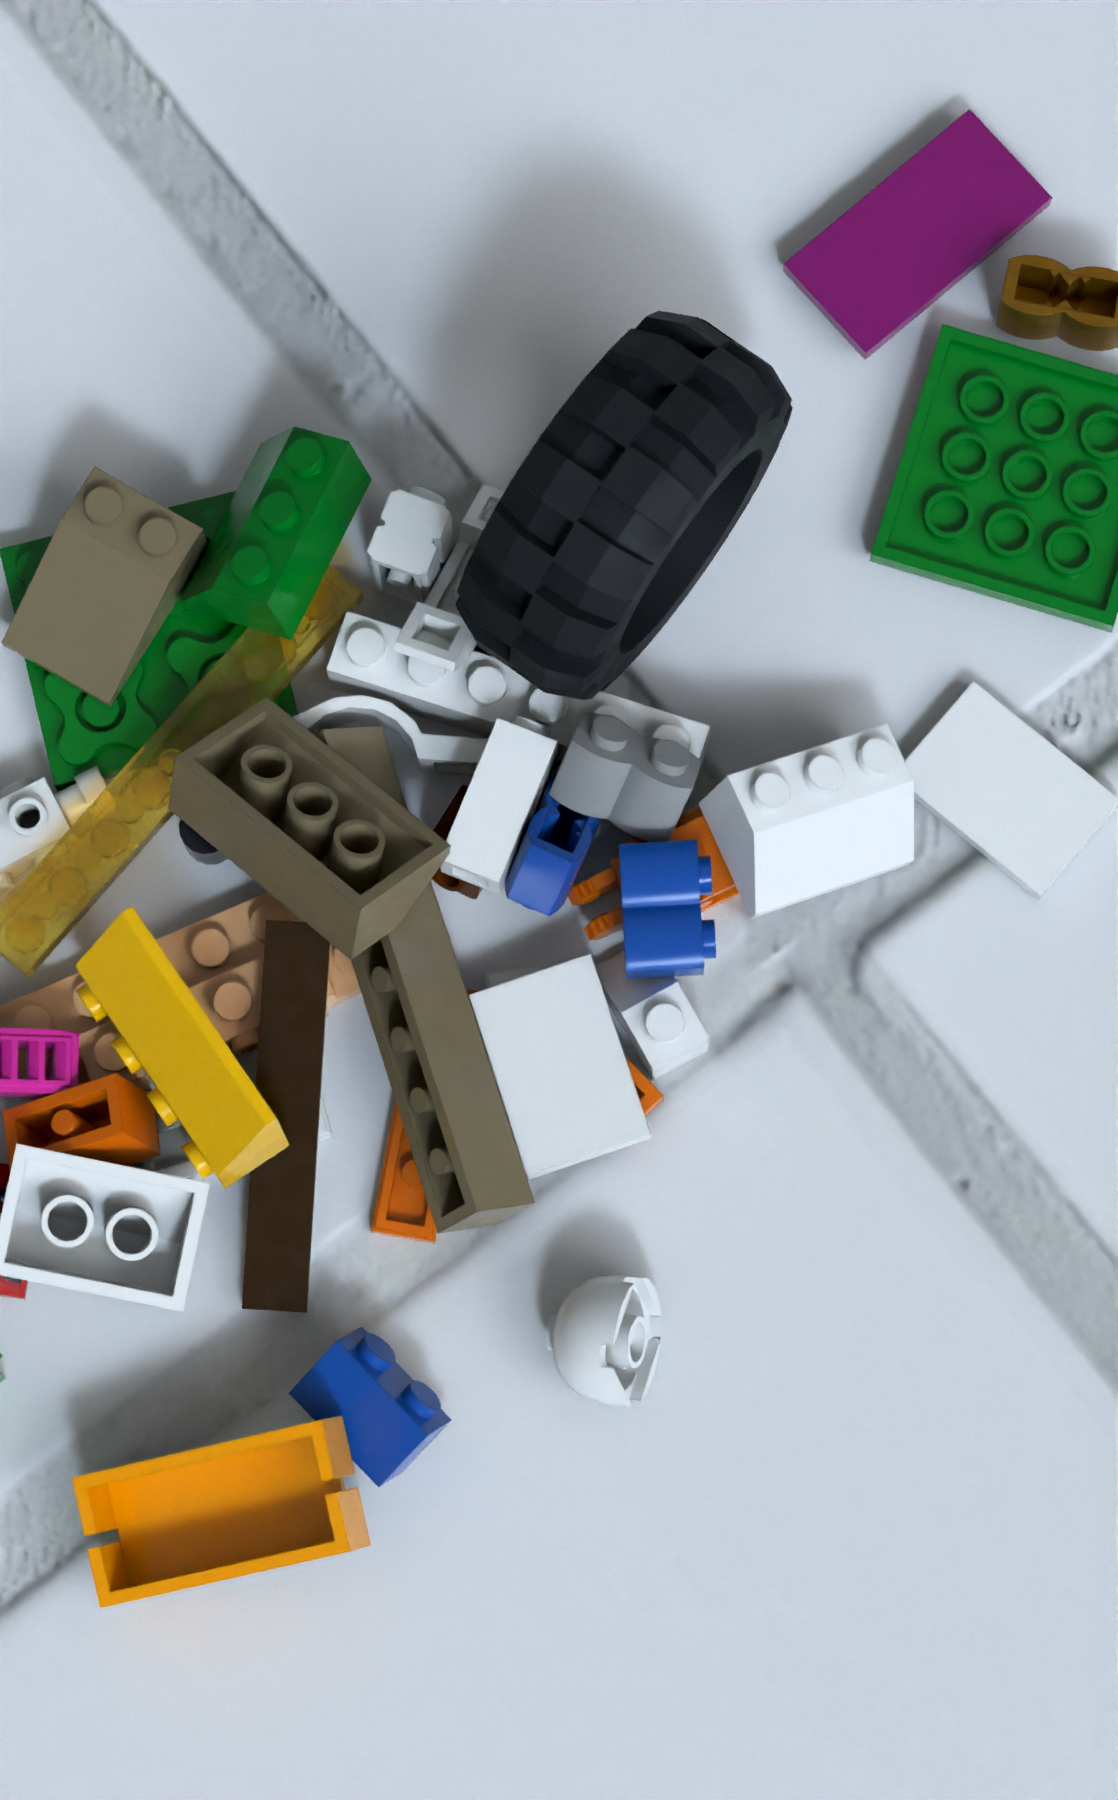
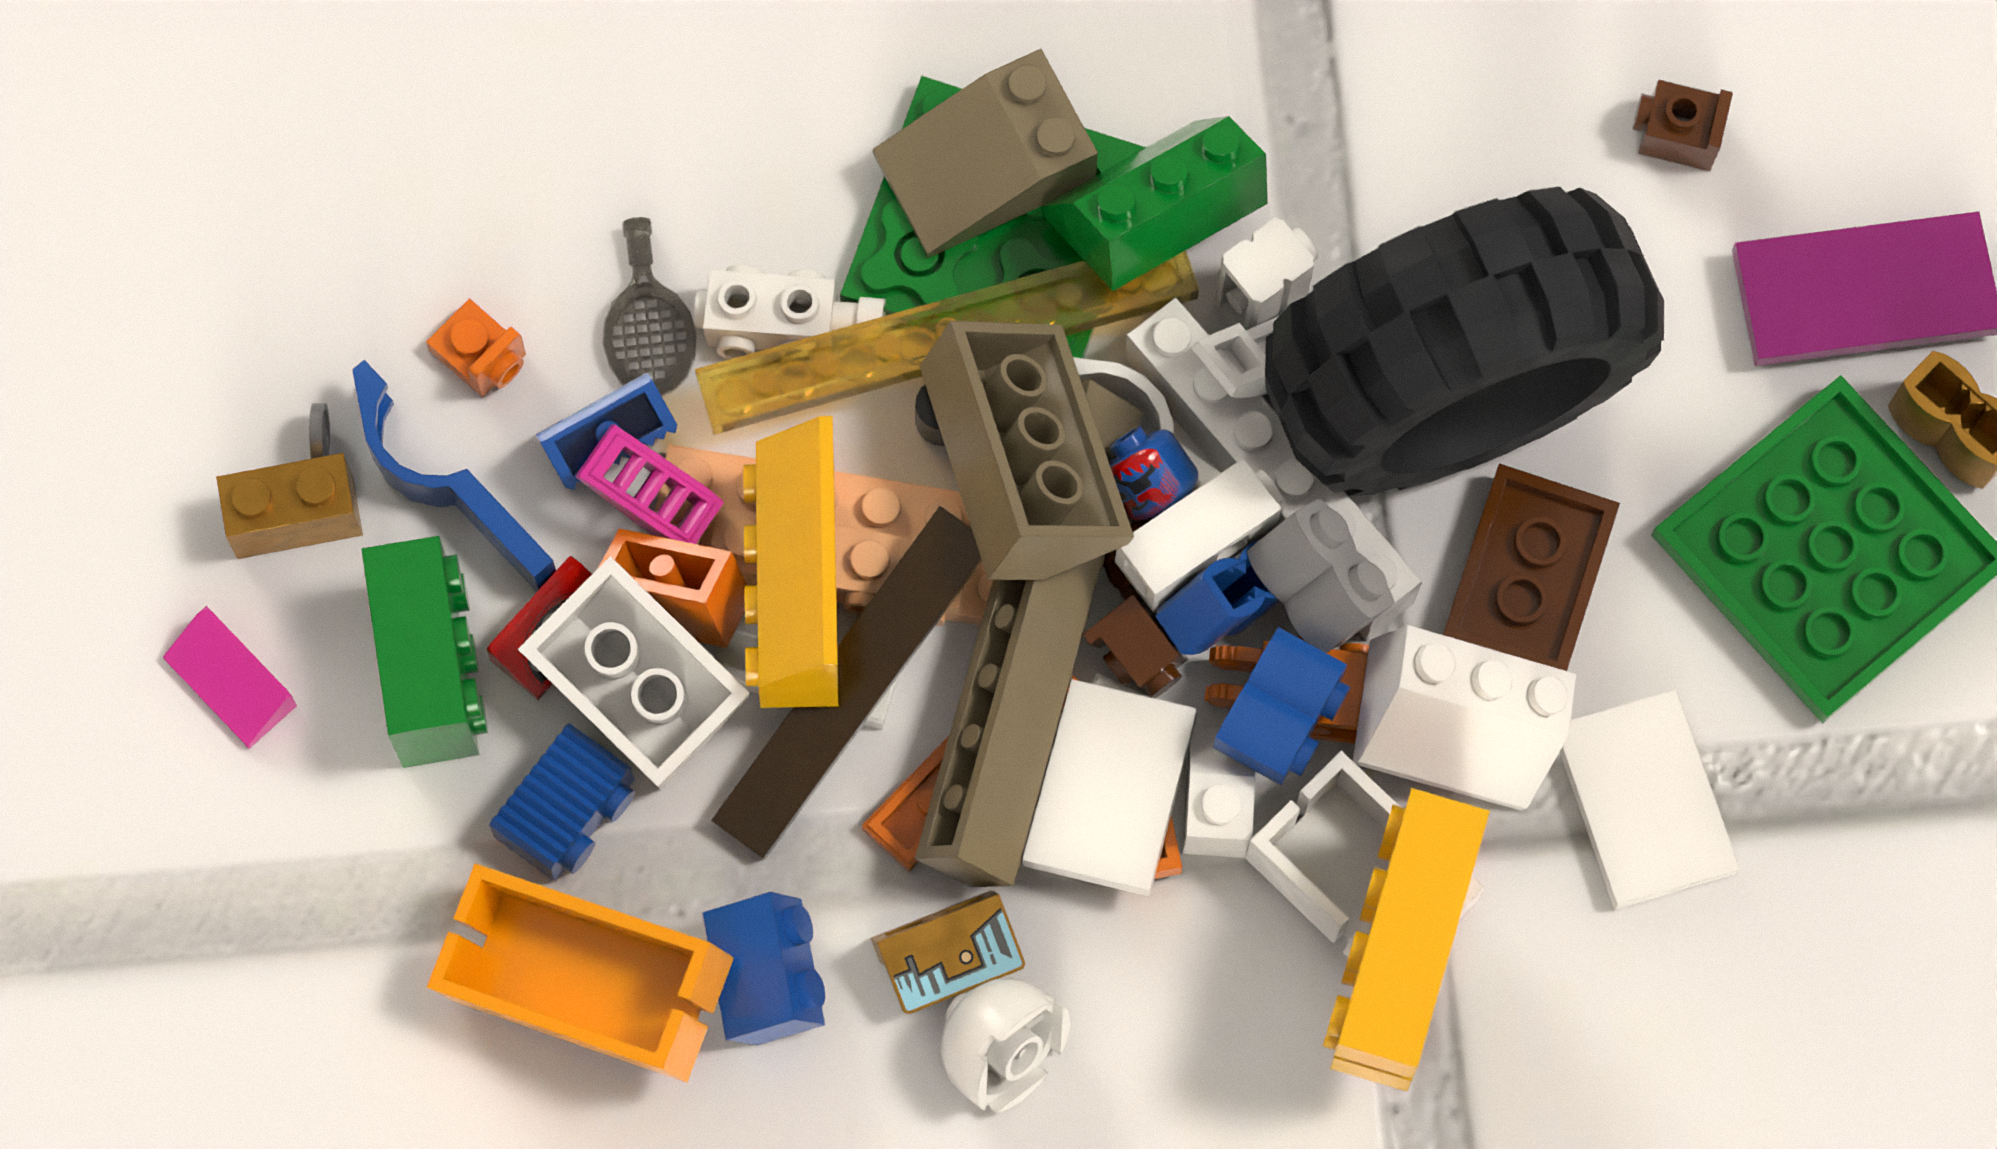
camera: 25 degrees right, 5 degrees down
(108, 1374) = (564, 803): none -> blue brick
(425, 776) = (1151, 472): none -> blue head
(506, 932) = (1137, 647): none -> reddish brown brick
(514, 1290) = (949, 951): none -> panel
(669, 207) = (1678, 141): none -> reddish brown brick
(790, 656) = (1531, 568): none -> reddish brown plate
(816, 1002) = (1332, 850): none -> white piece
(898, 1043) = (1412, 931): none -> yellow piece

